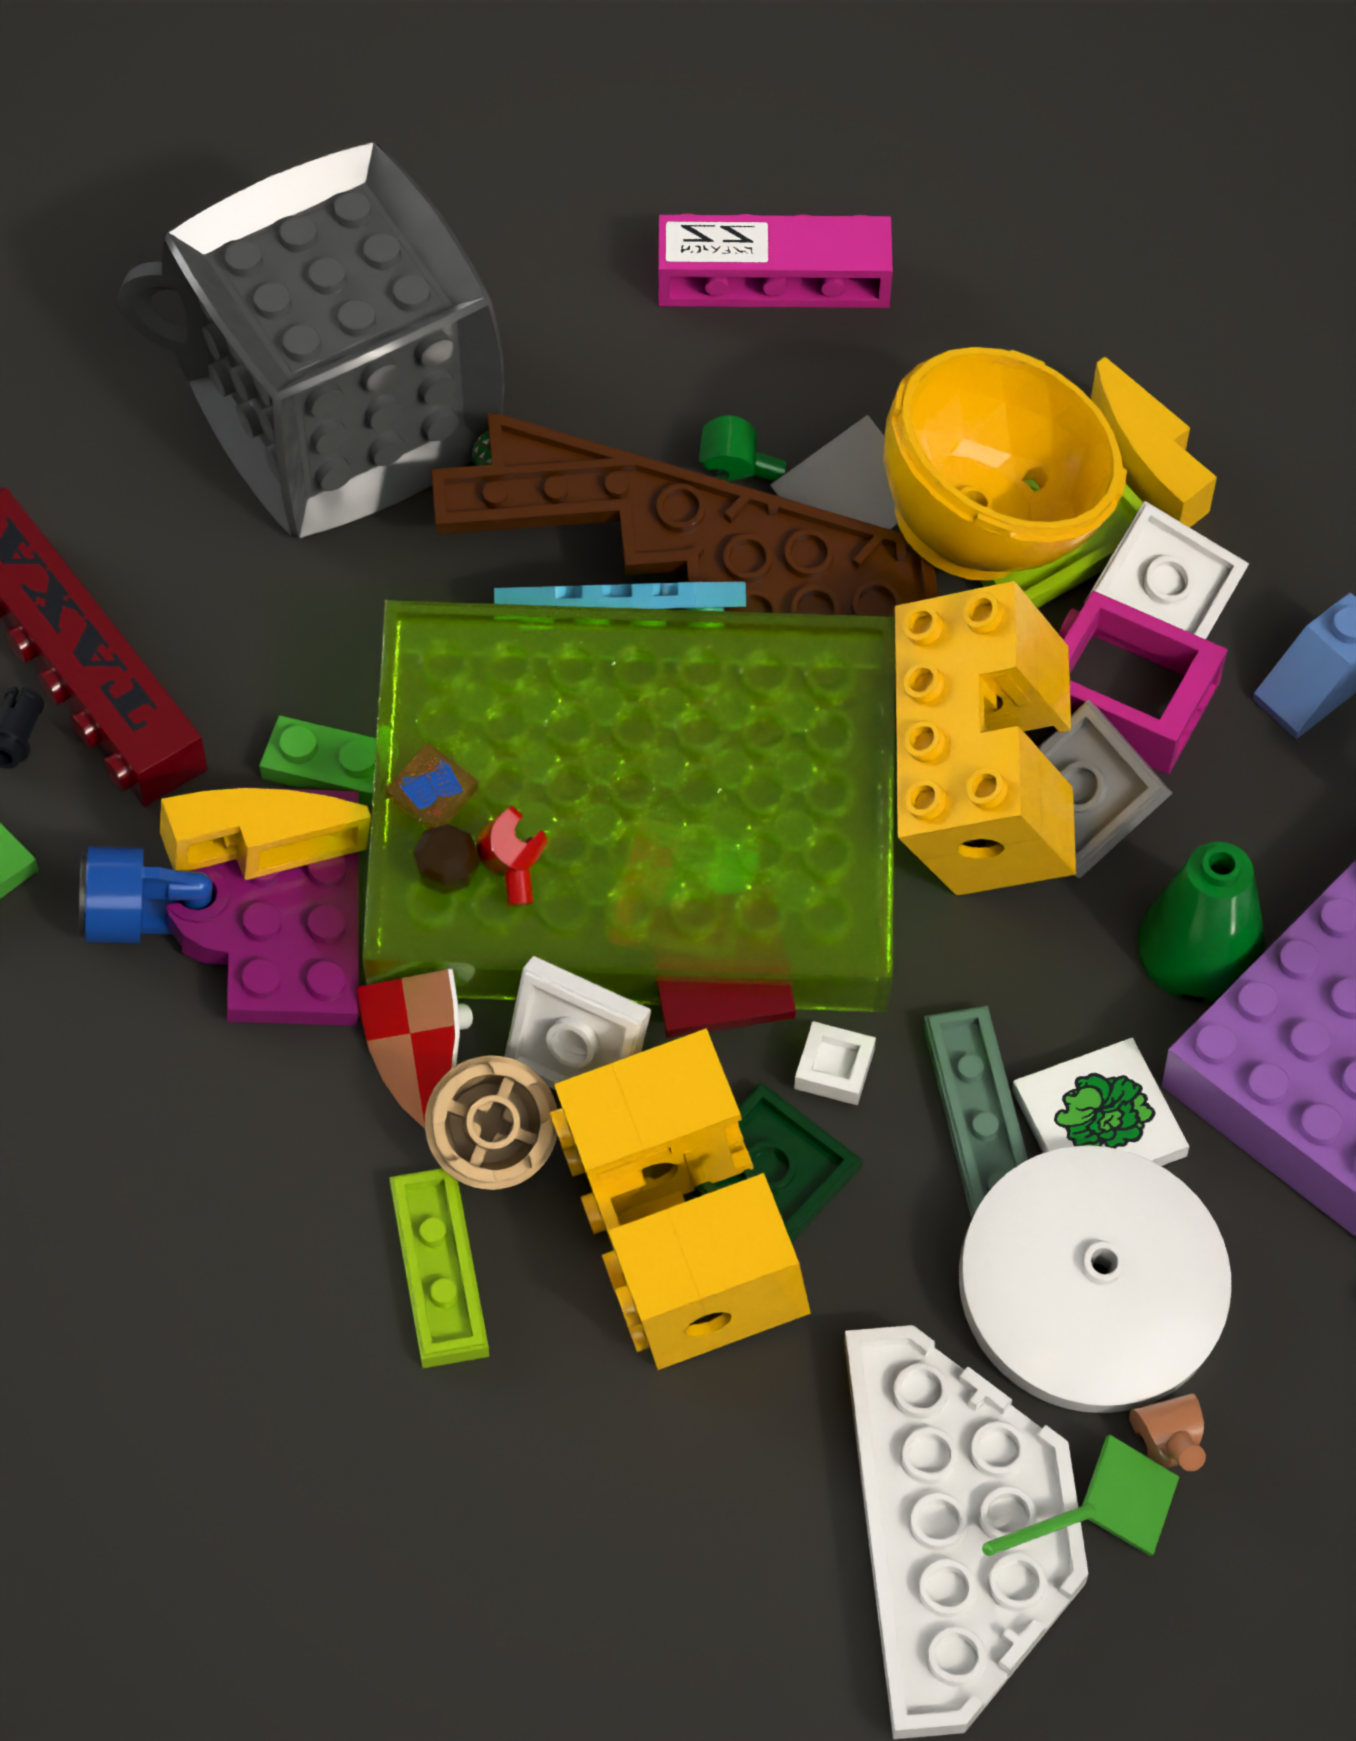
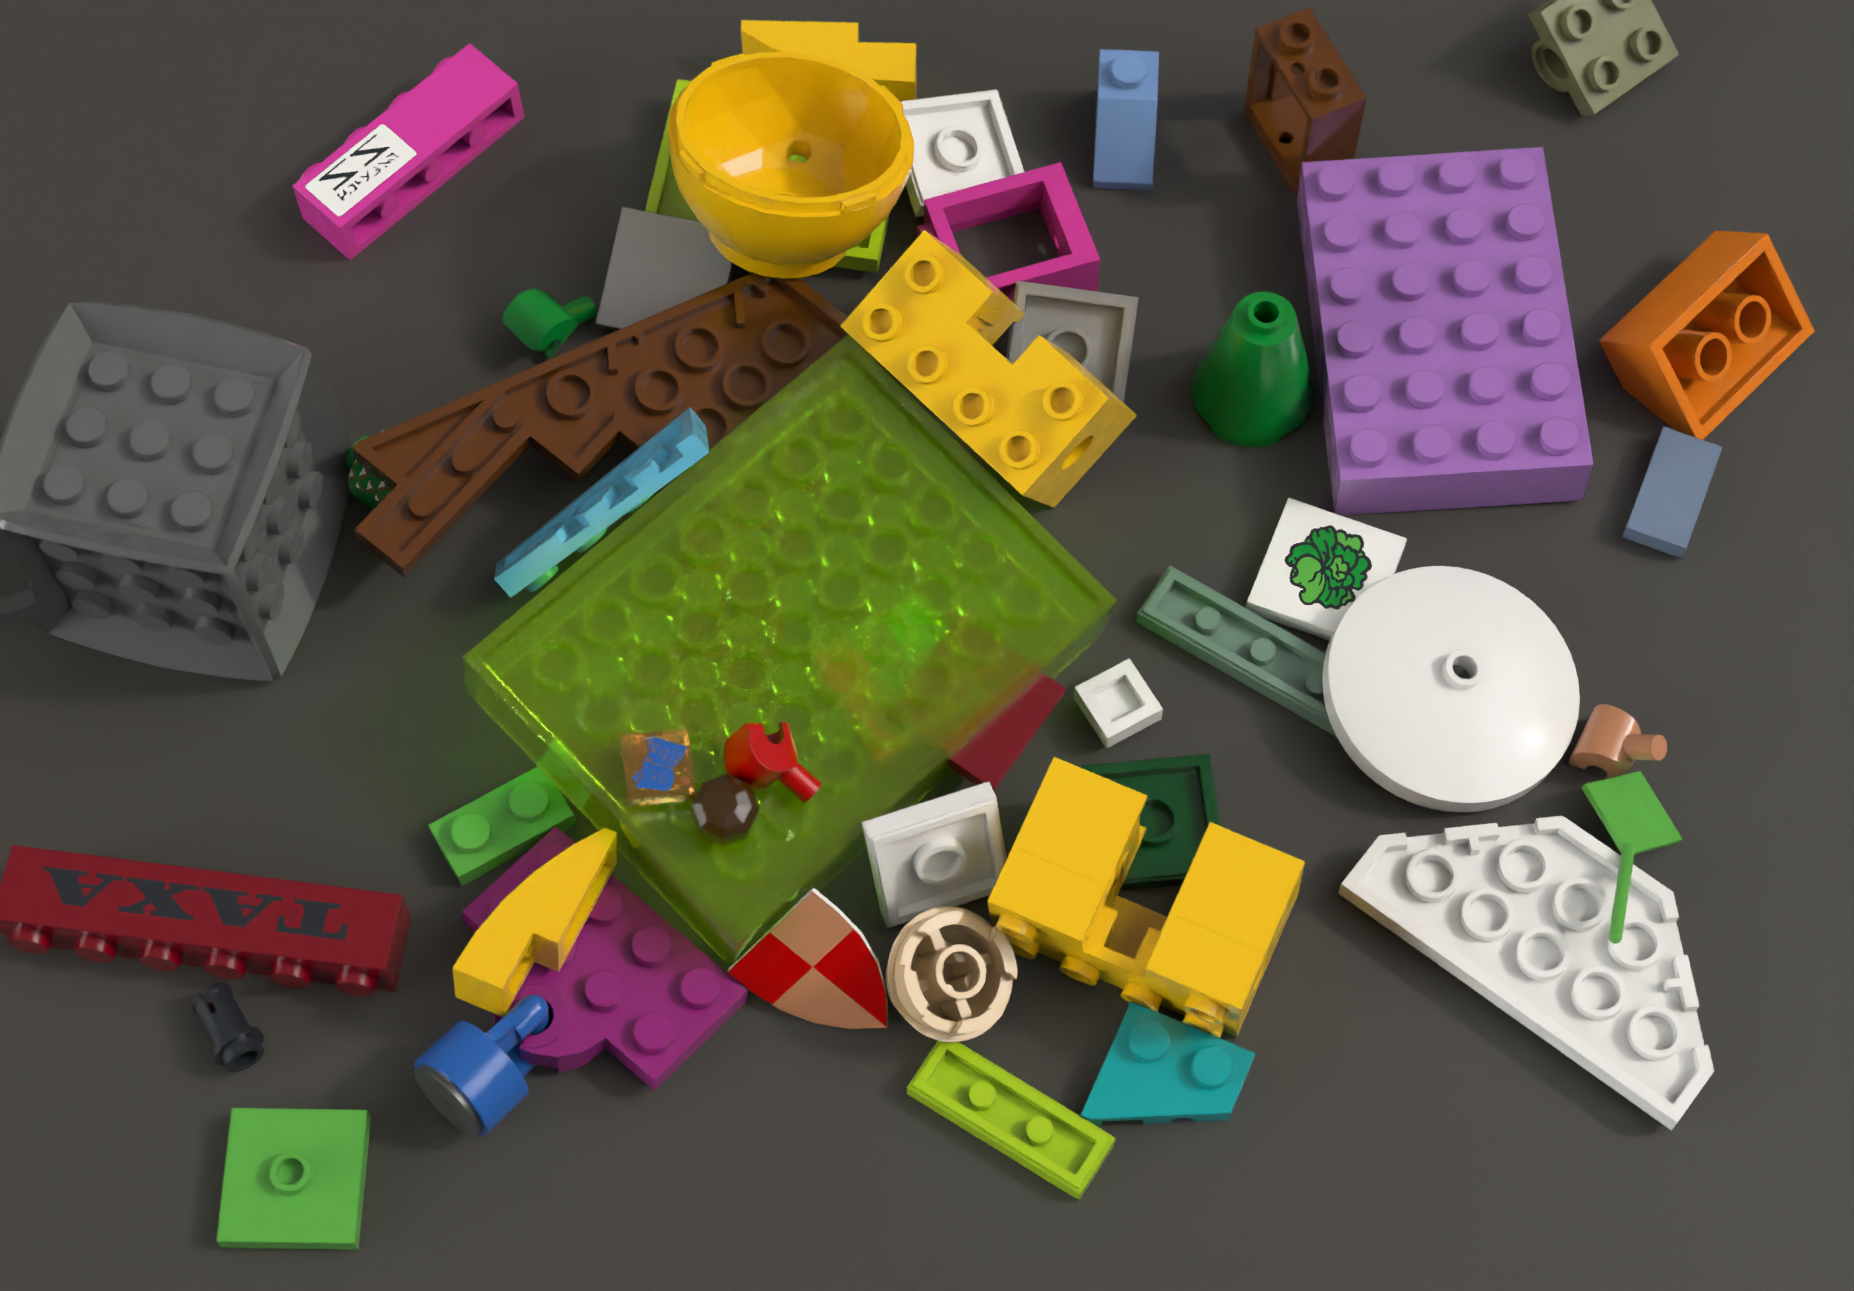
camera: 45 degrees left, 5 degrees up
(576, 1341) = (1166, 1073): none -> teal wing

